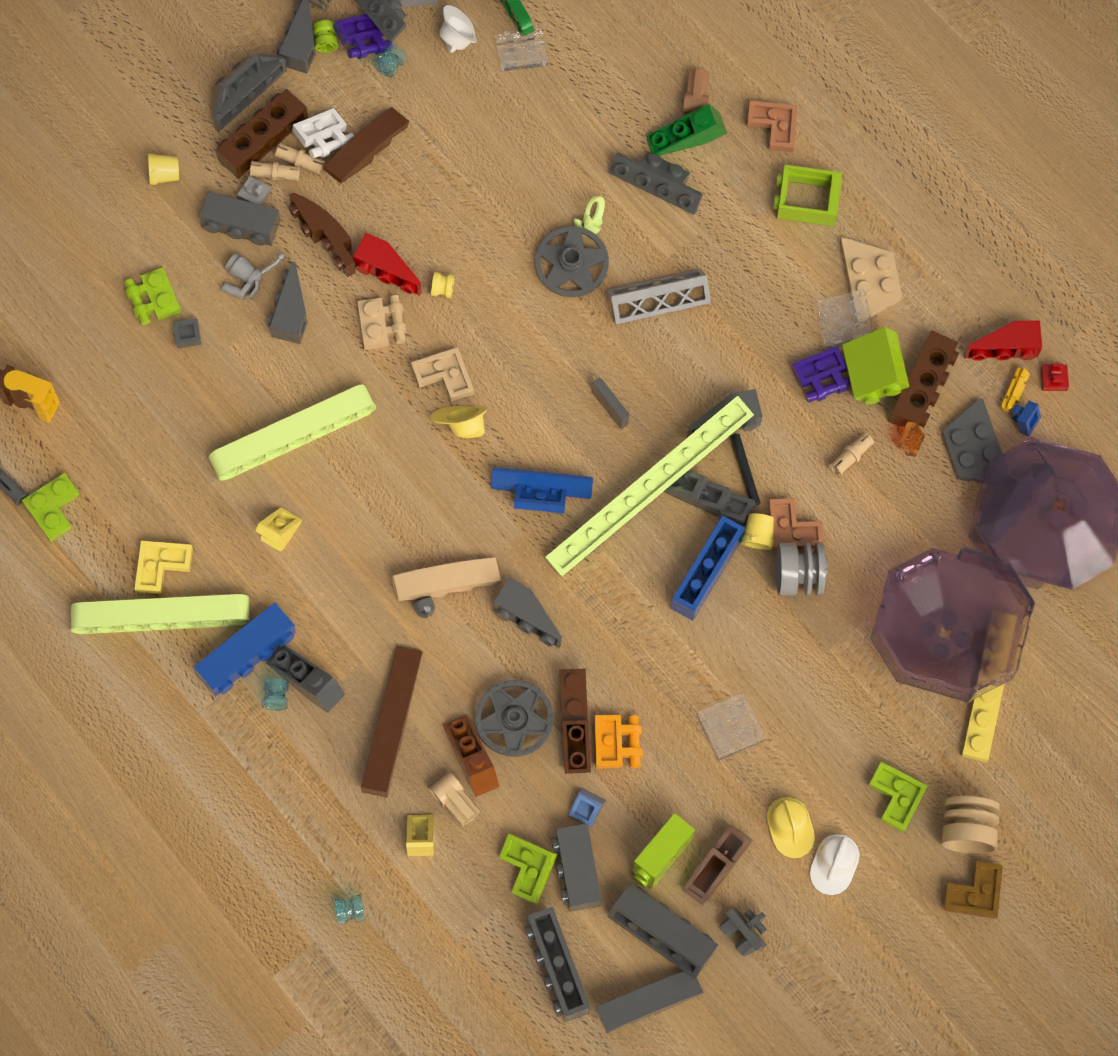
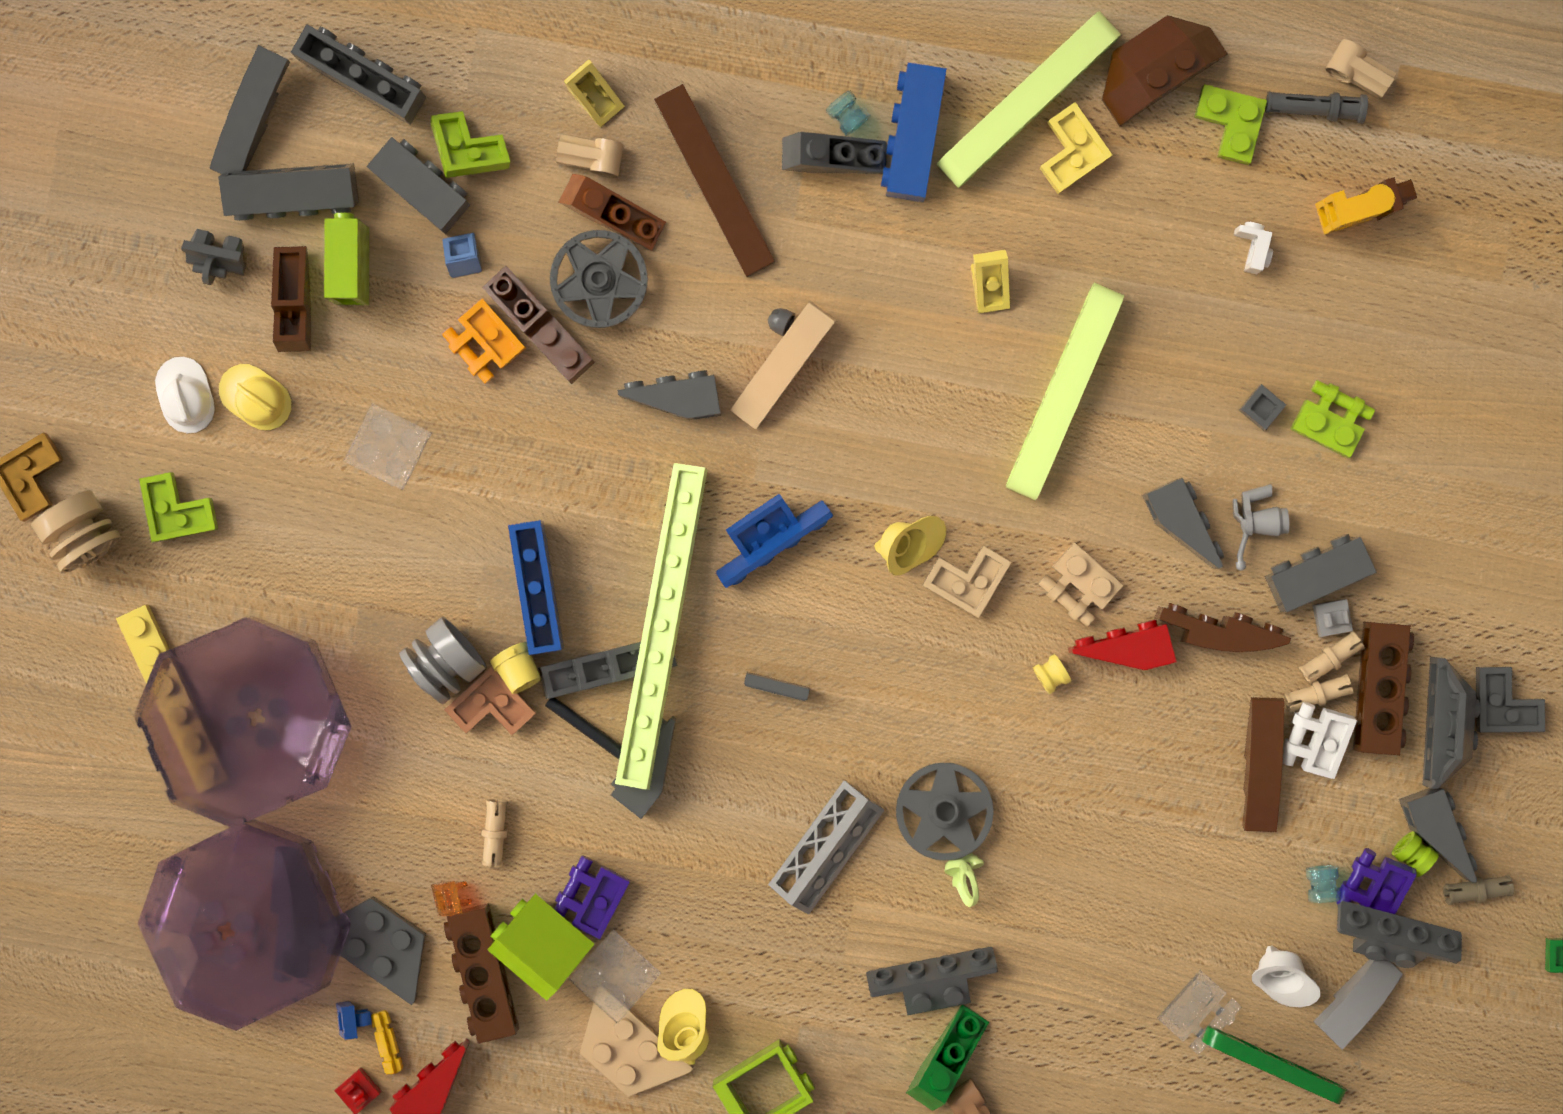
camera: 145 degrees right, 20 degrees up
(65, 570) = (1157, 65): none -> reddish brown wedge
(106, 419) = (1259, 252): none -> white bracket
(162, 168) = (1447, 562): light yellow piece -> none
(205, 71) = (1498, 708): none -> dark grey plate
(827, 262) = (683, 1027): none -> light yellow piece

